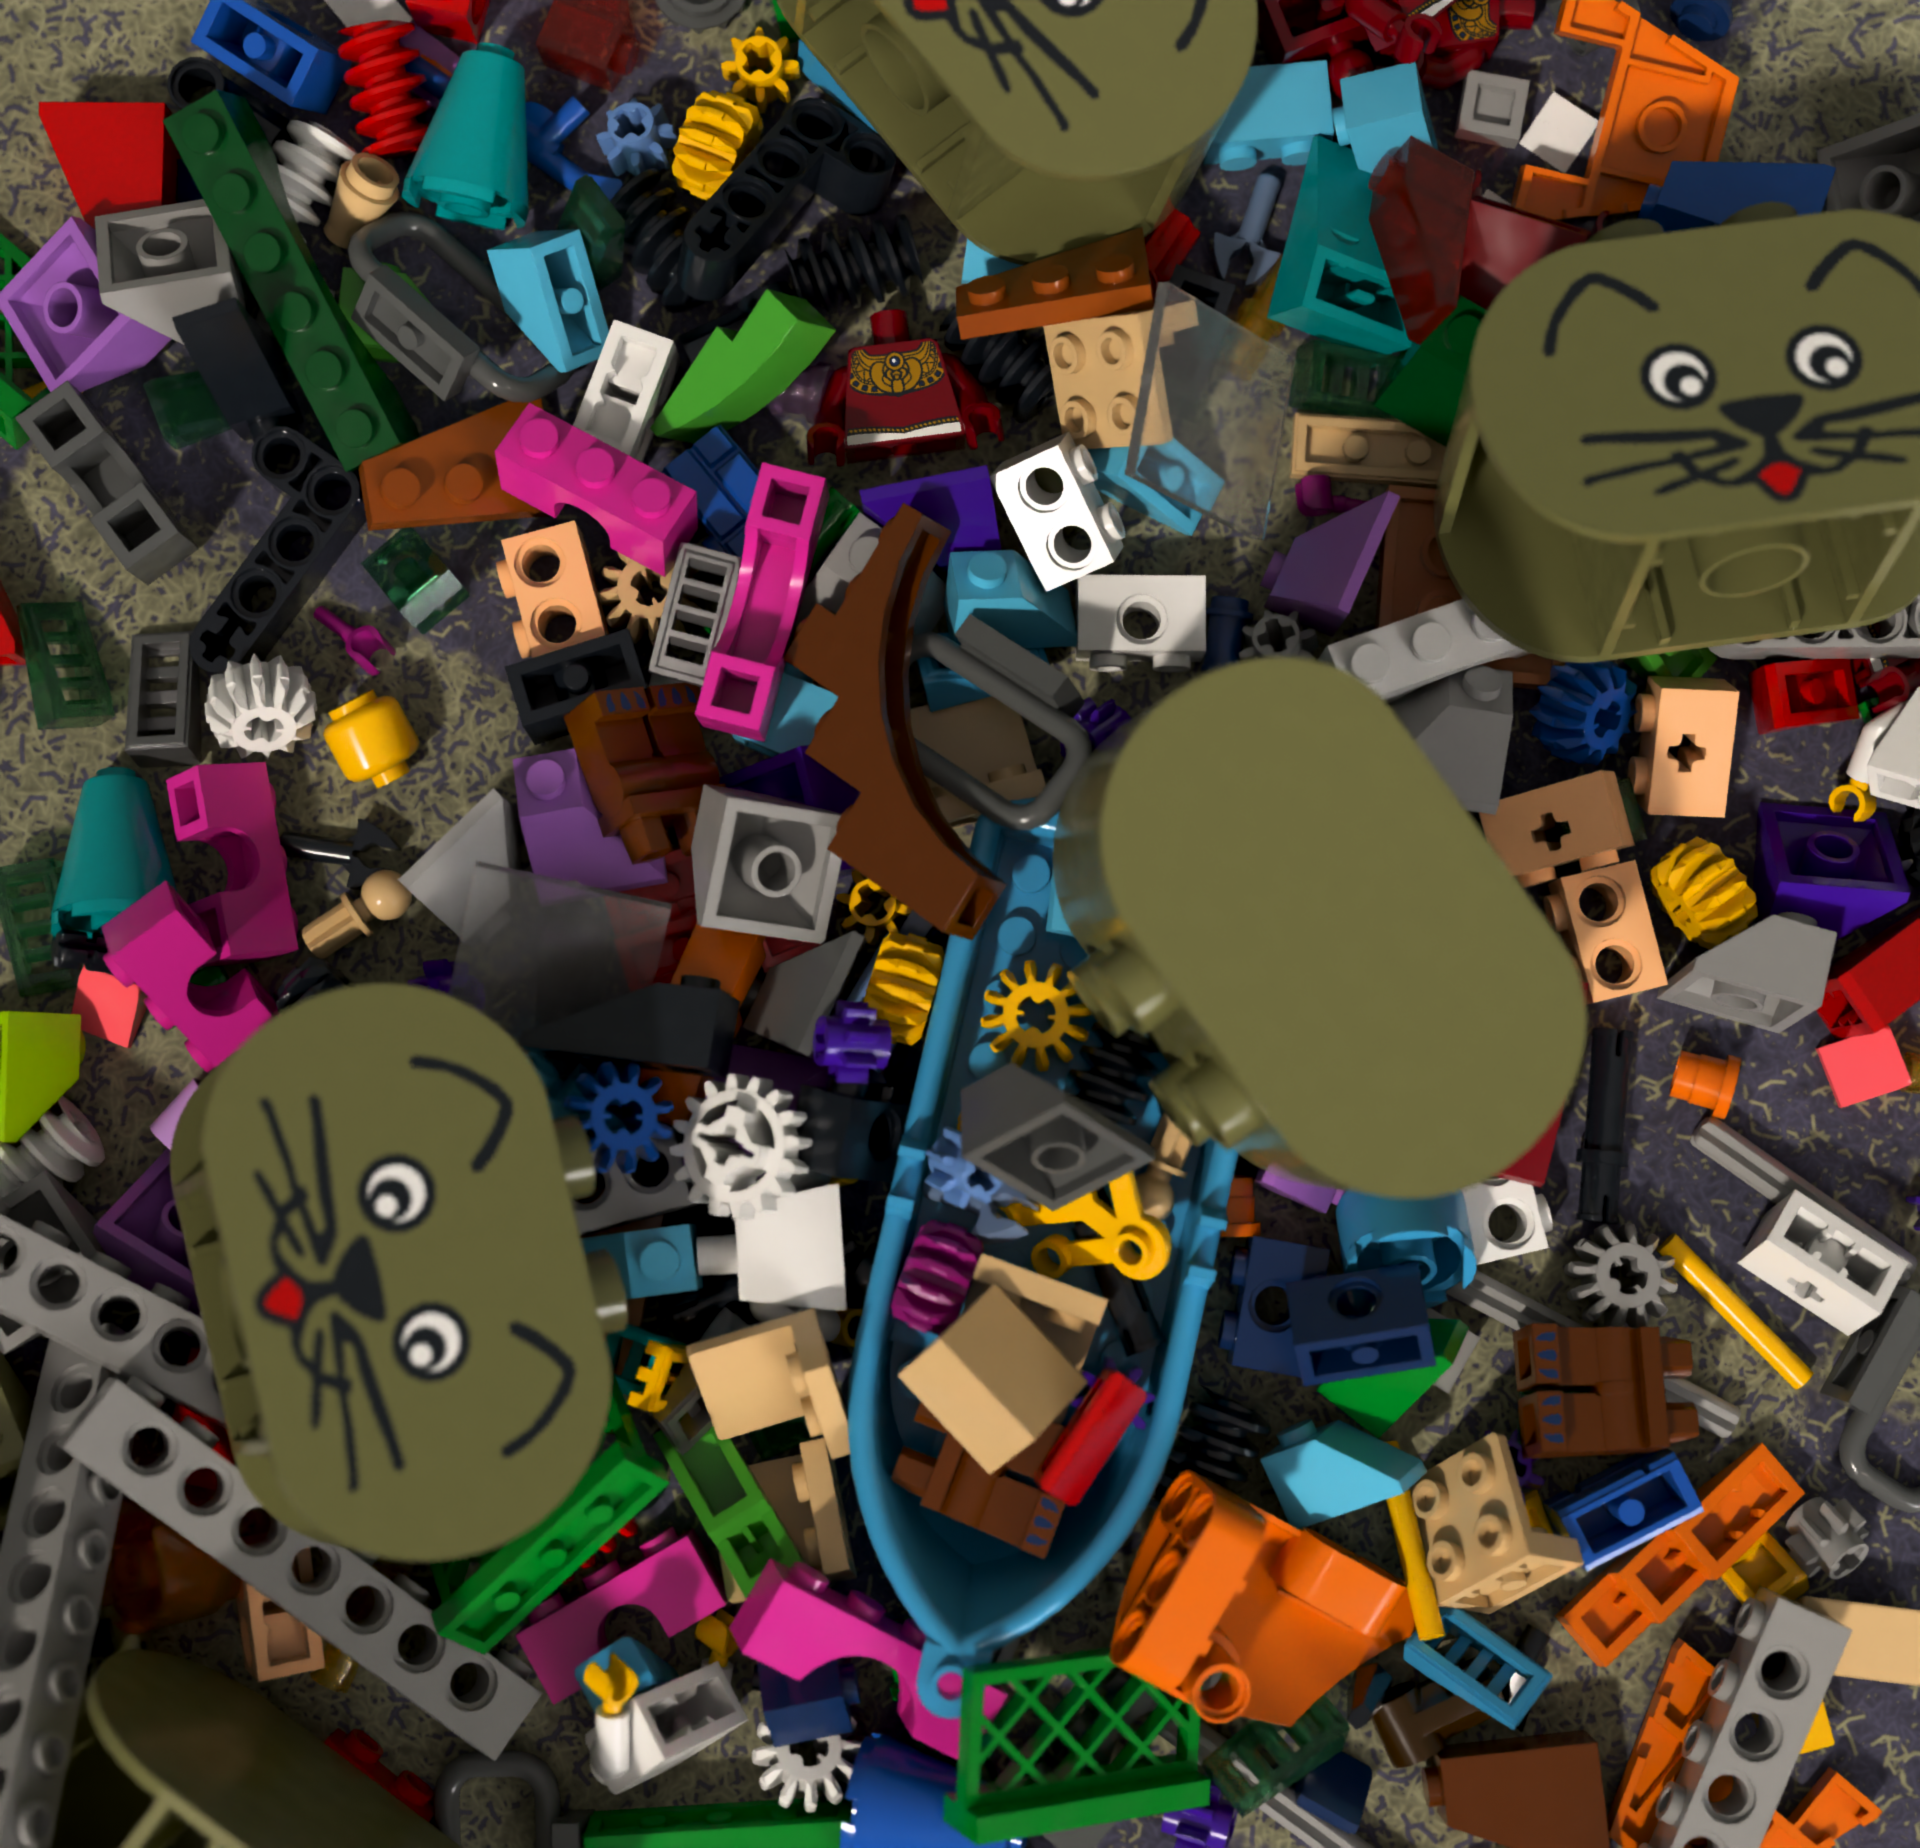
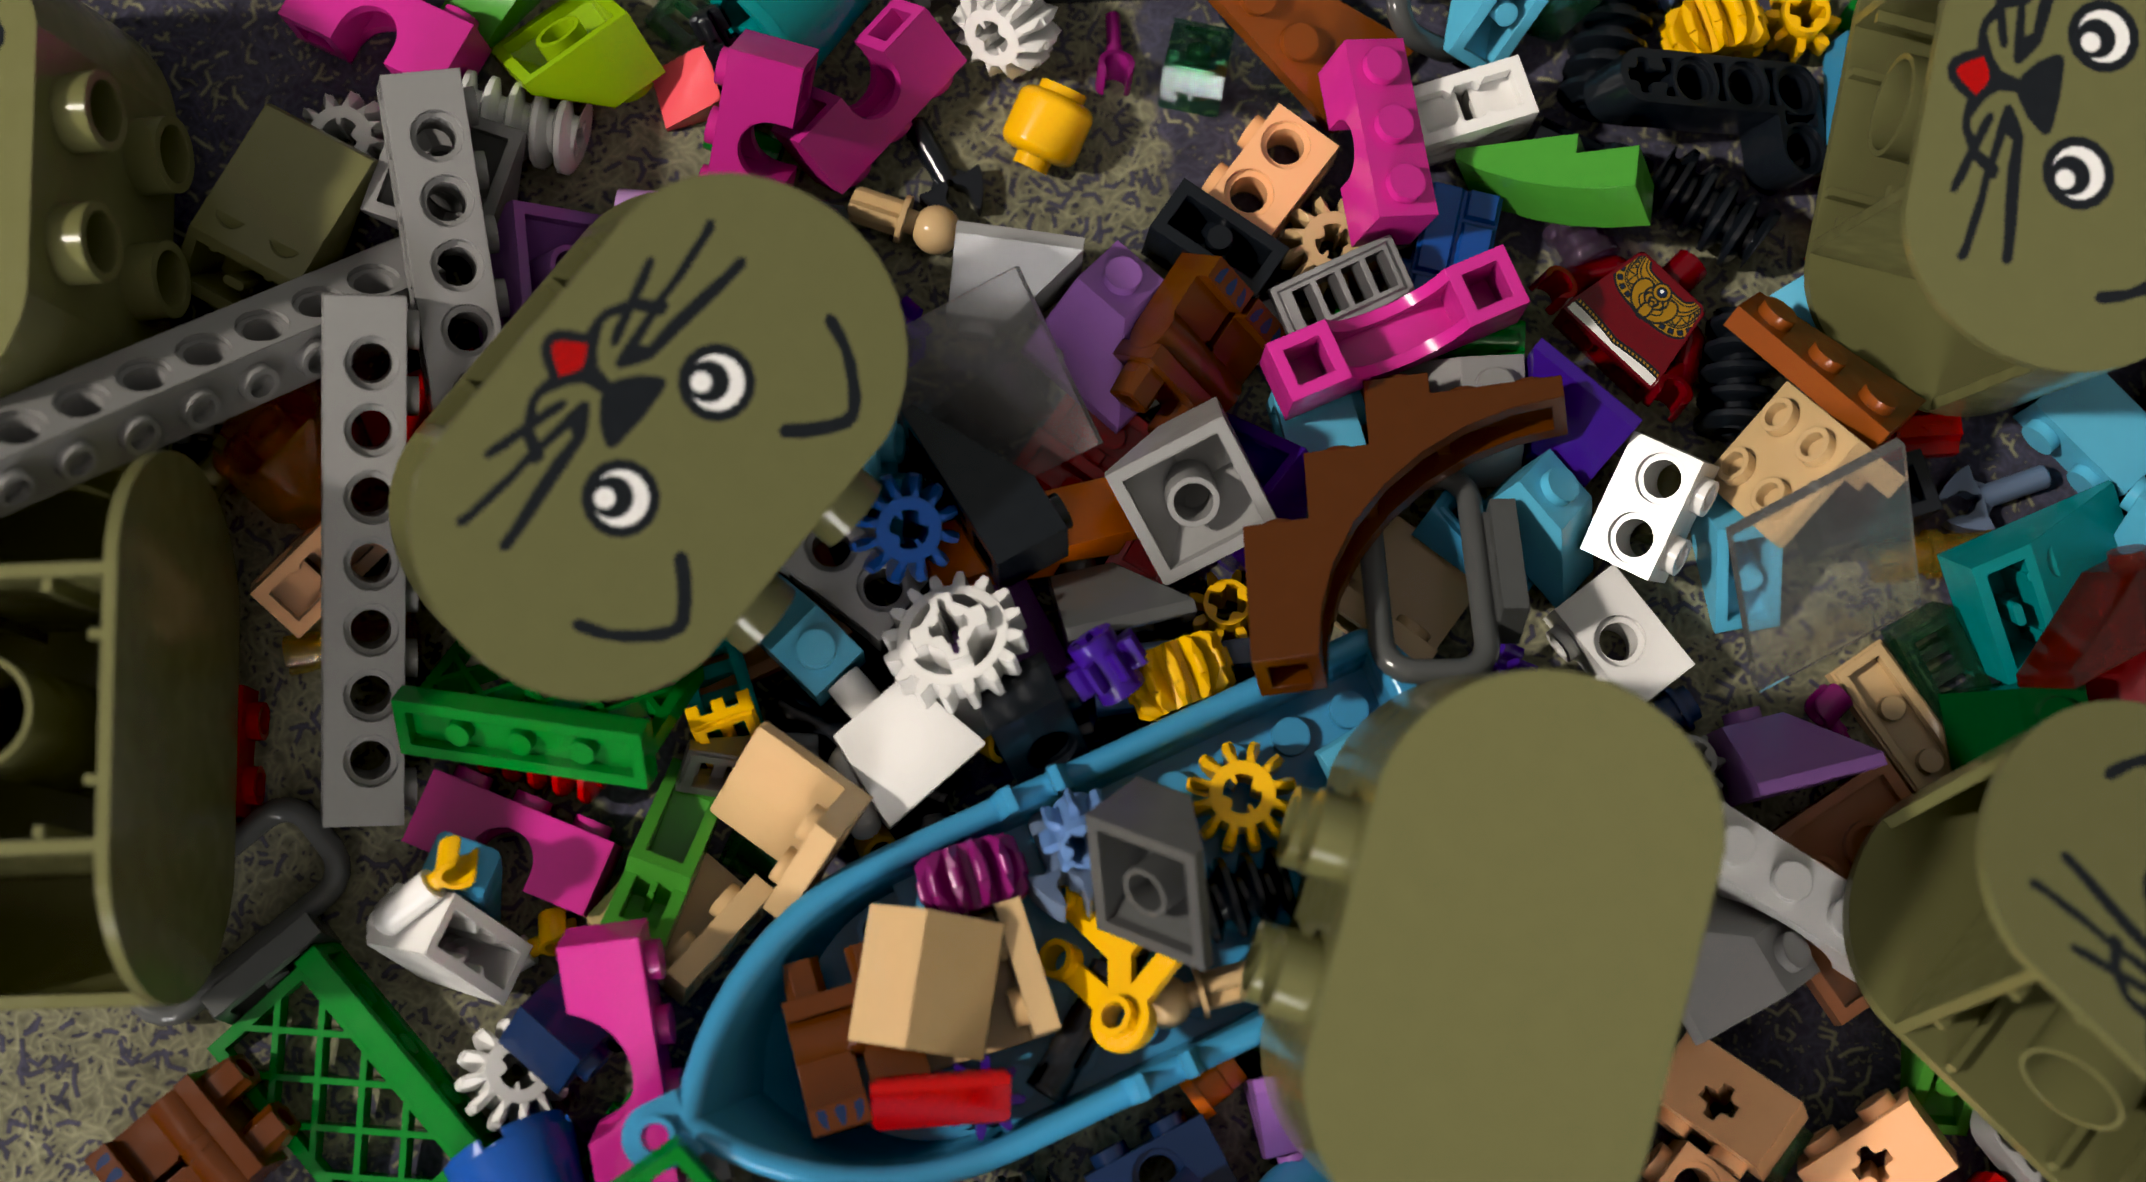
camera: 45 degrees right, 5 degrees down
(1584, 711) = (1837, 1054): blue gear -> none

